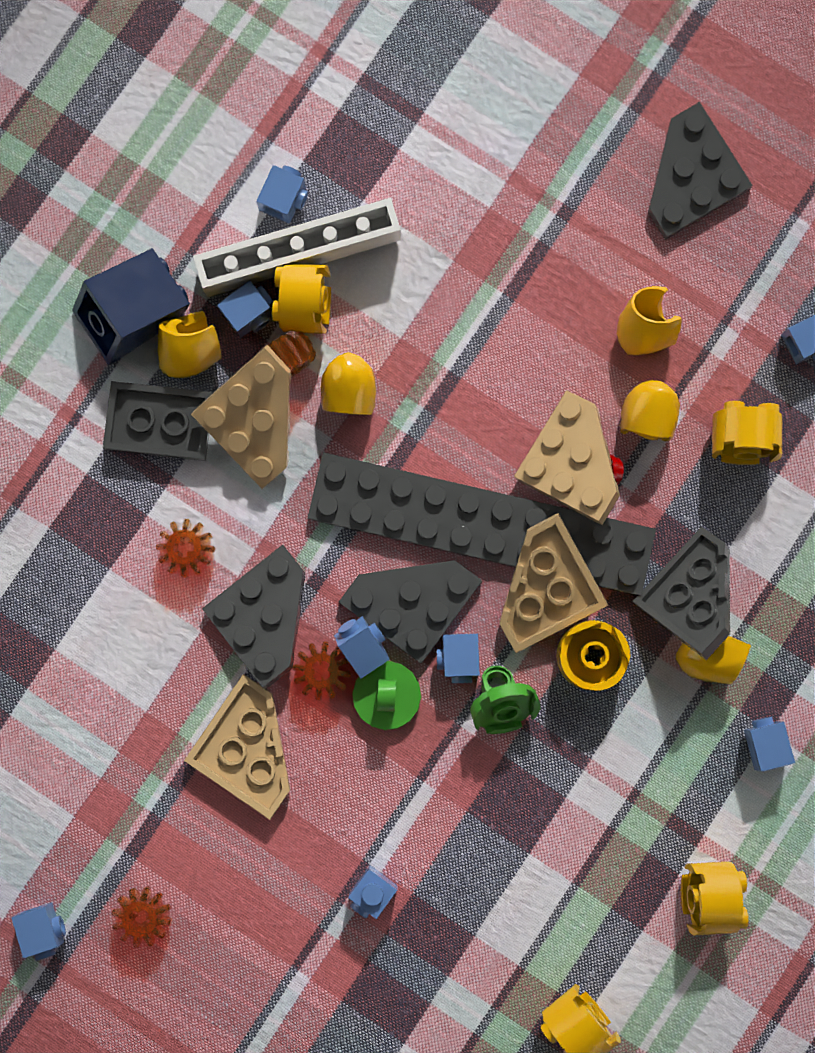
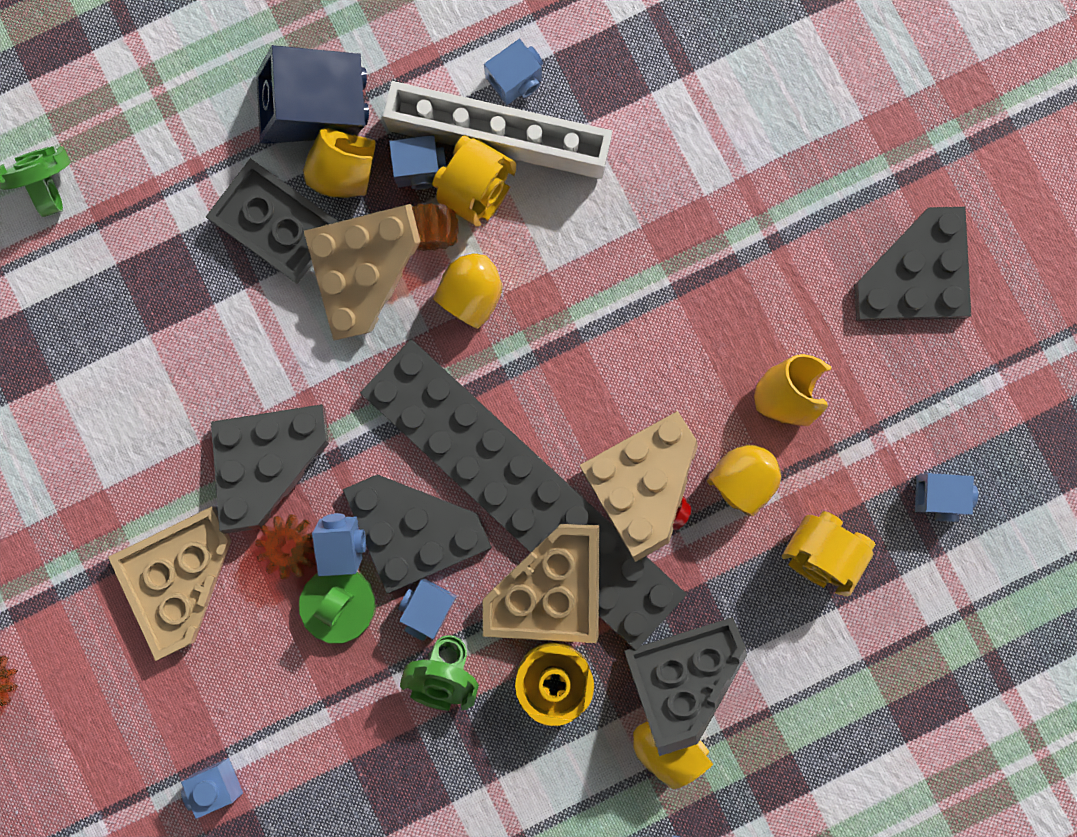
camera: 30 degrees right, 0 degrees up
(178, 539) = (234, 342): clear orange gear -> none

